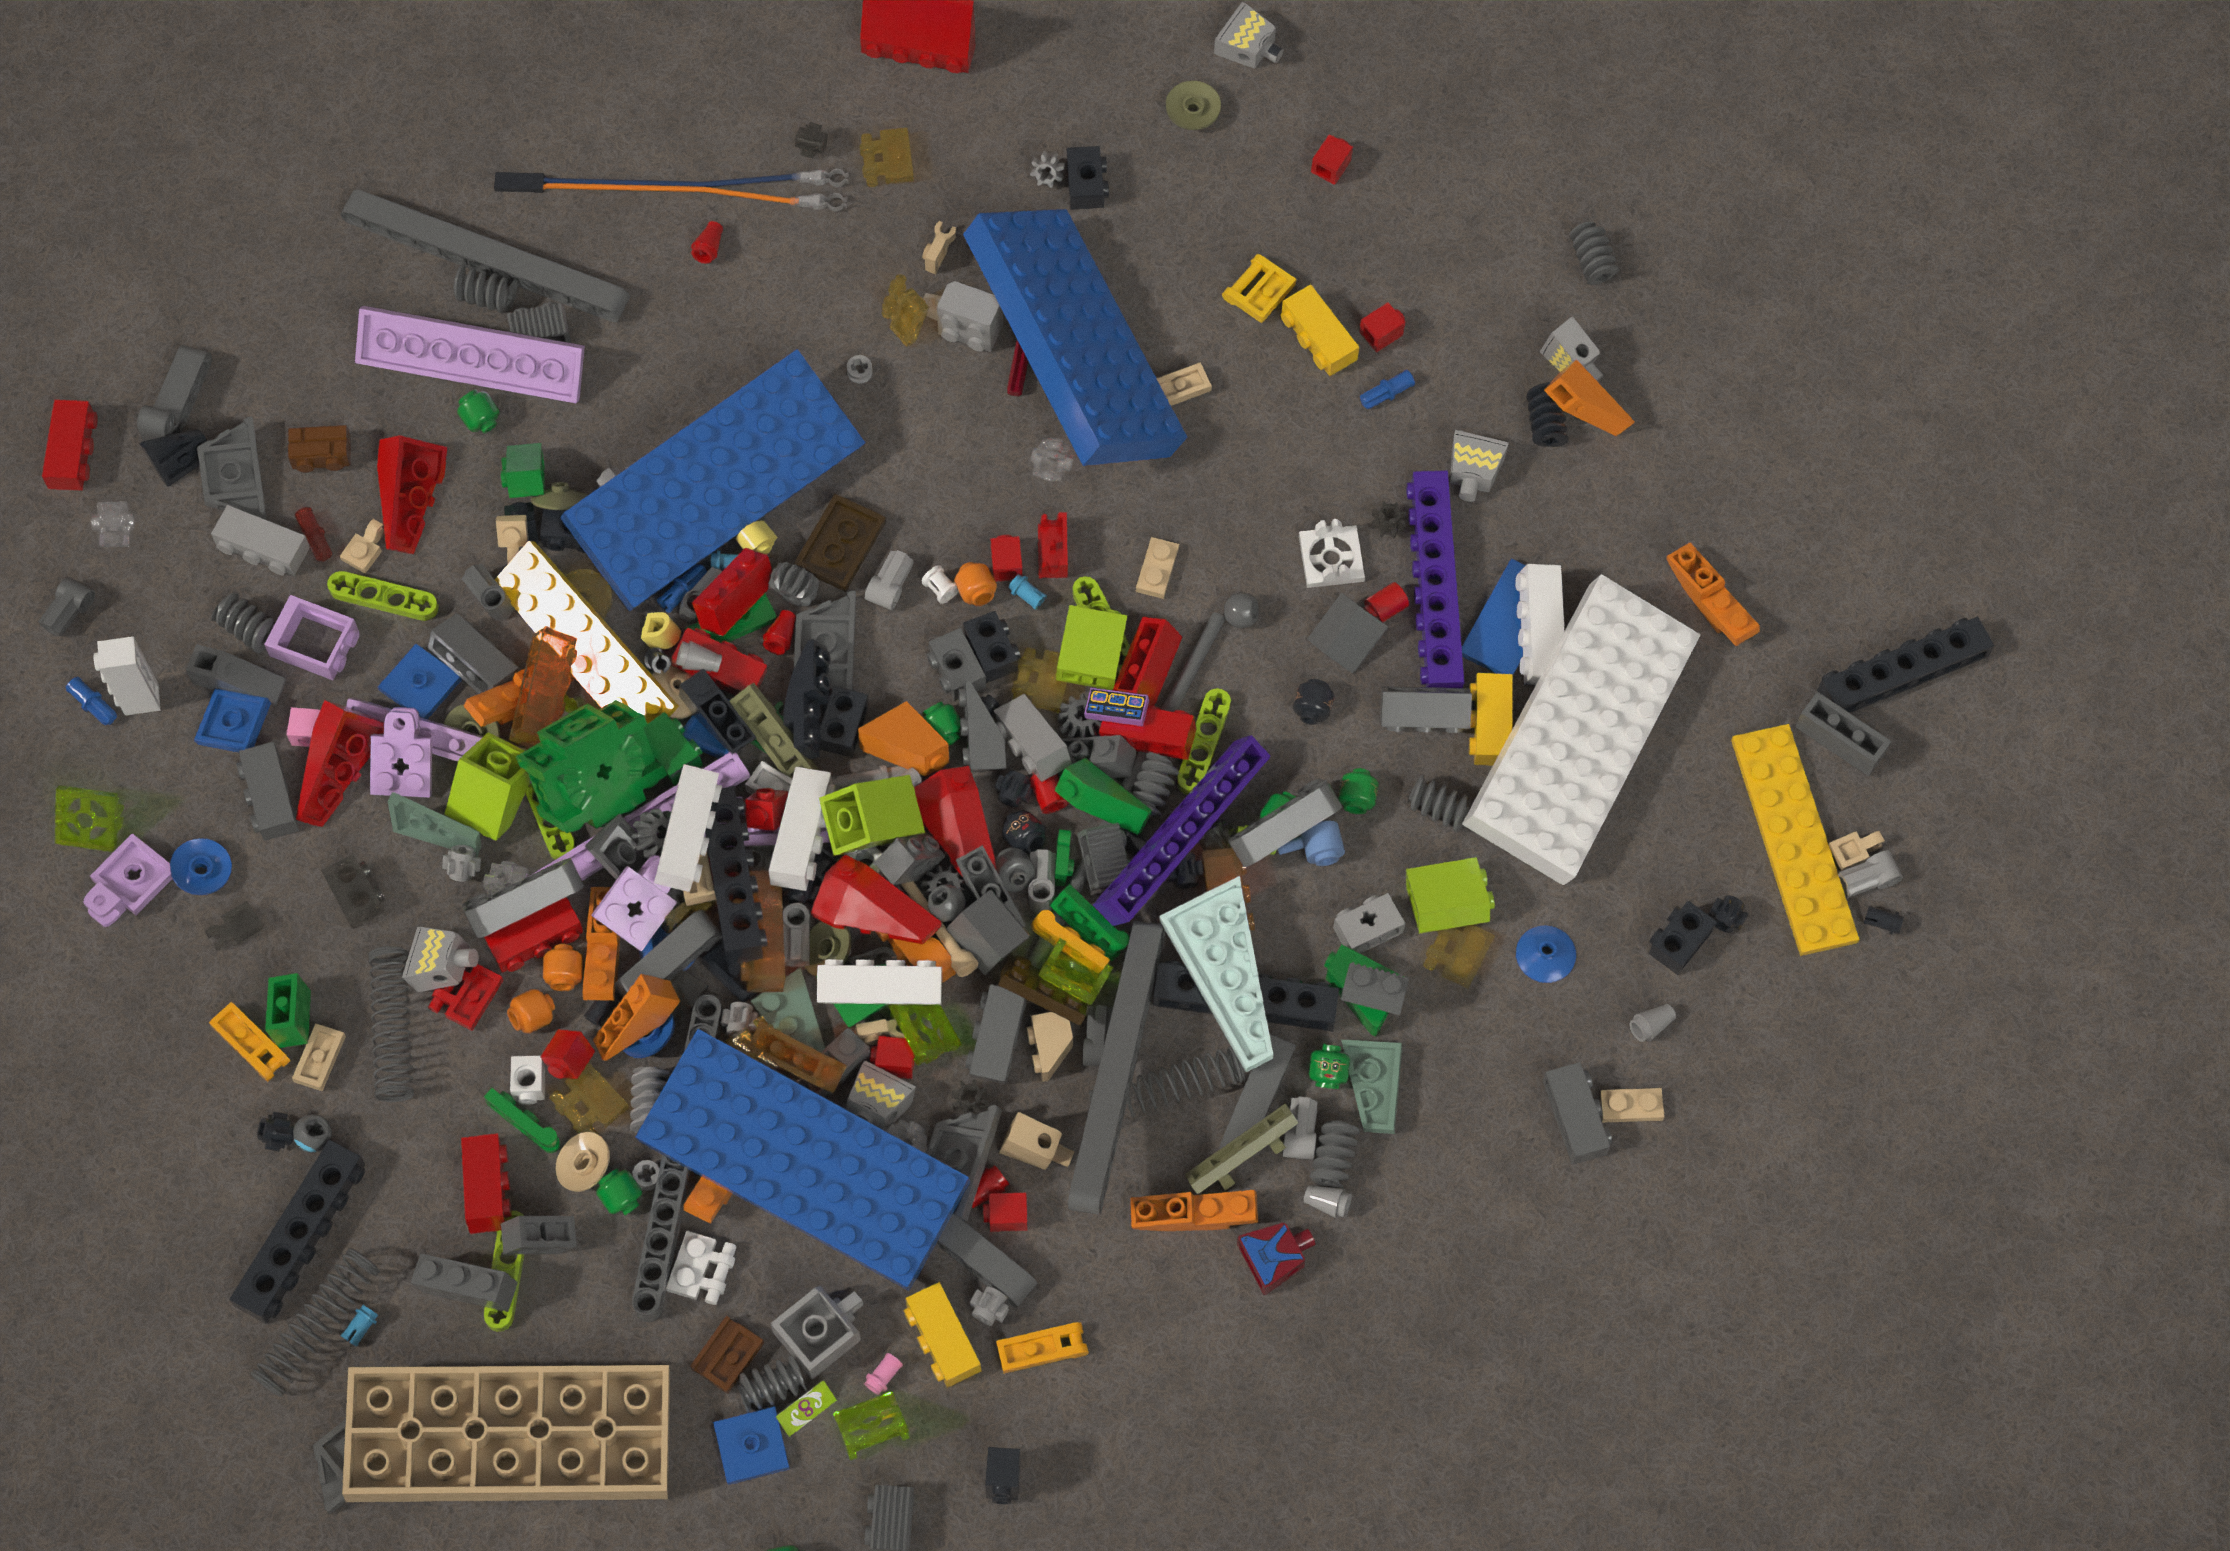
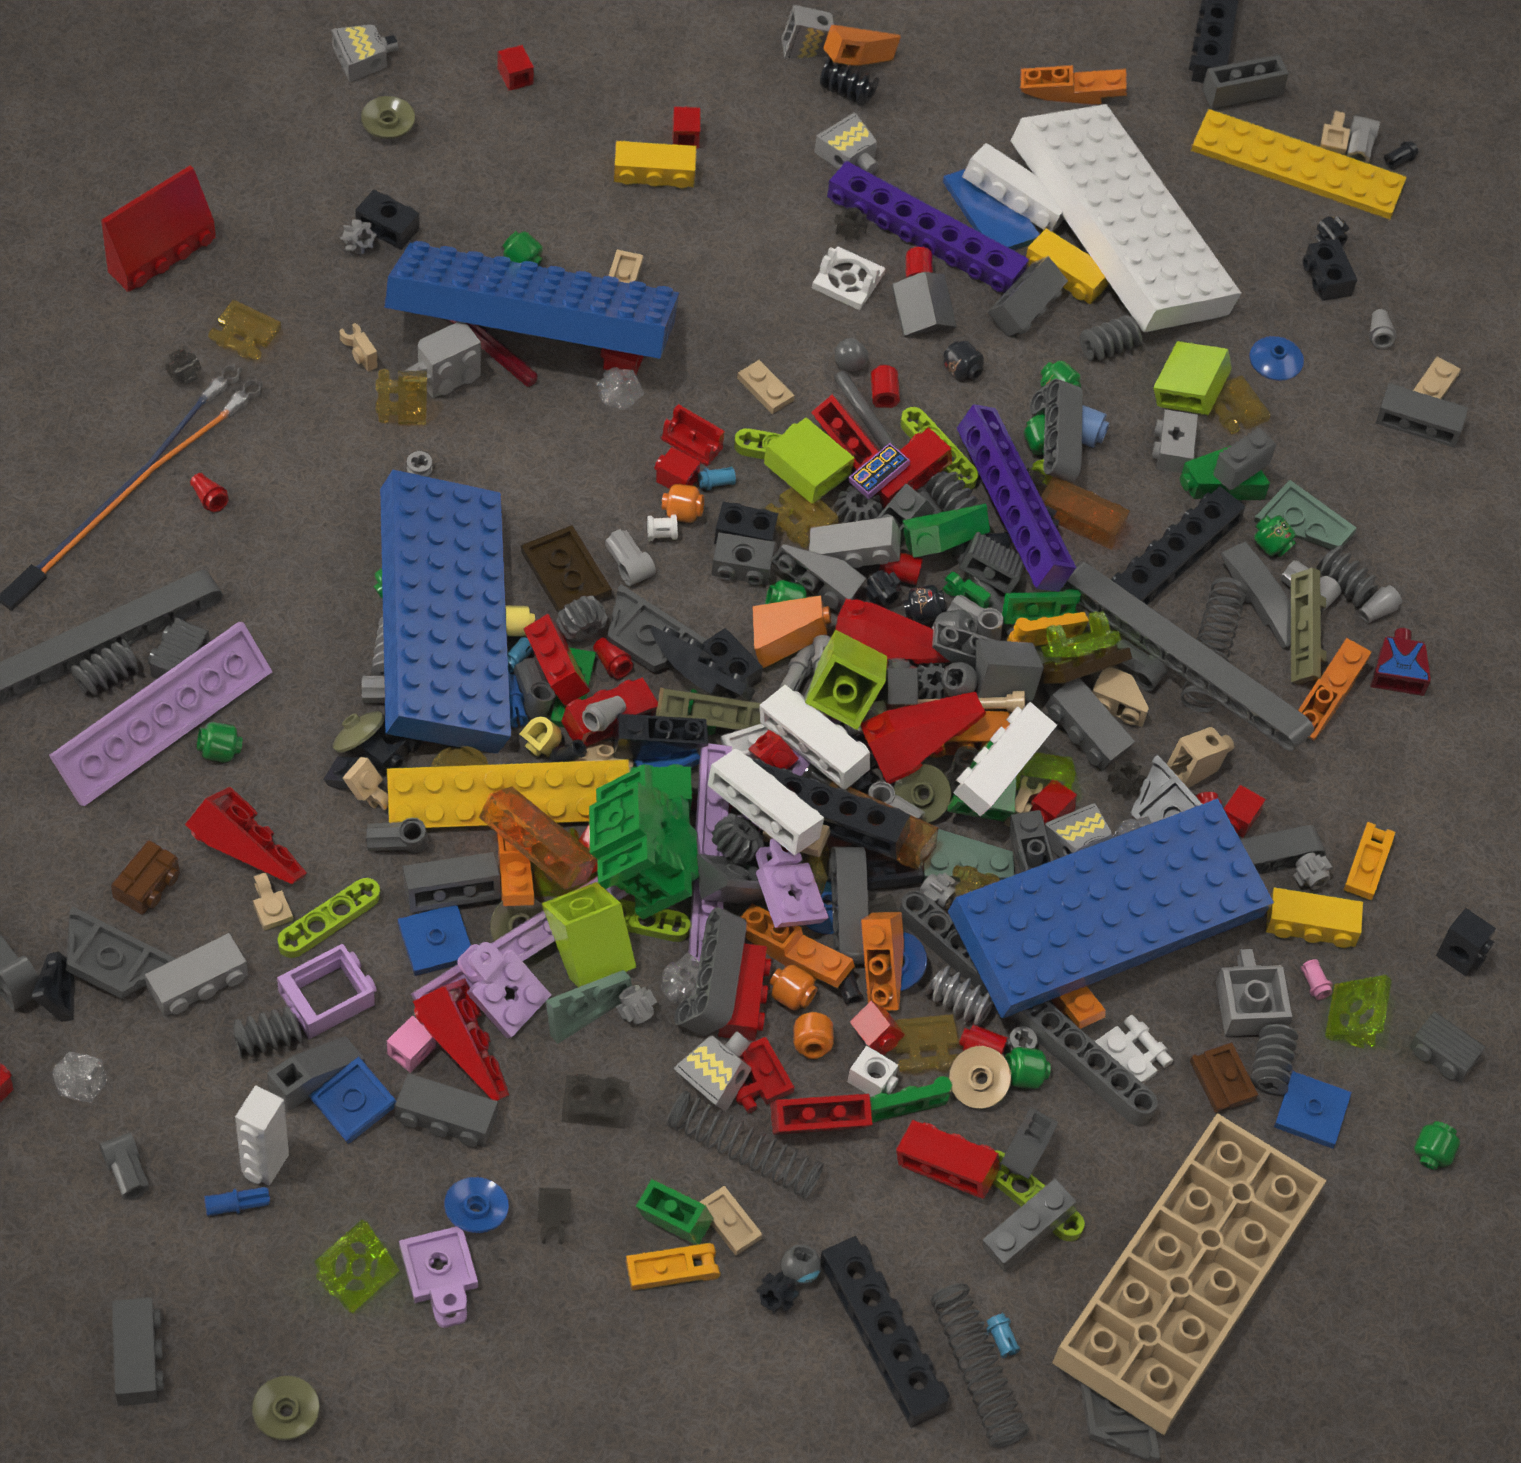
camera: 60 degrees left, 10 degrees down
(313, 533) = (211, 931): clear red axle -> none
(455, 1061) = (821, 1114): none -> red brick
(523, 470) = (312, 737): green brick -> none
(620, 1145) = (982, 1037): none -> red brick
(796, 1057) = (1023, 853): clear orange brick -> none
(806, 1408) = (1308, 1051): lime sticker -> none
(1138, 295) = (522, 247): none -> green head
(1219, 954) = (1147, 539): light aqua wing -> none
(1232, 657) = (885, 387): none -> red brick
(1265, 294) = (591, 174): yellow plate -> none
(1387, 389) = (739, 158): blue axle -> none

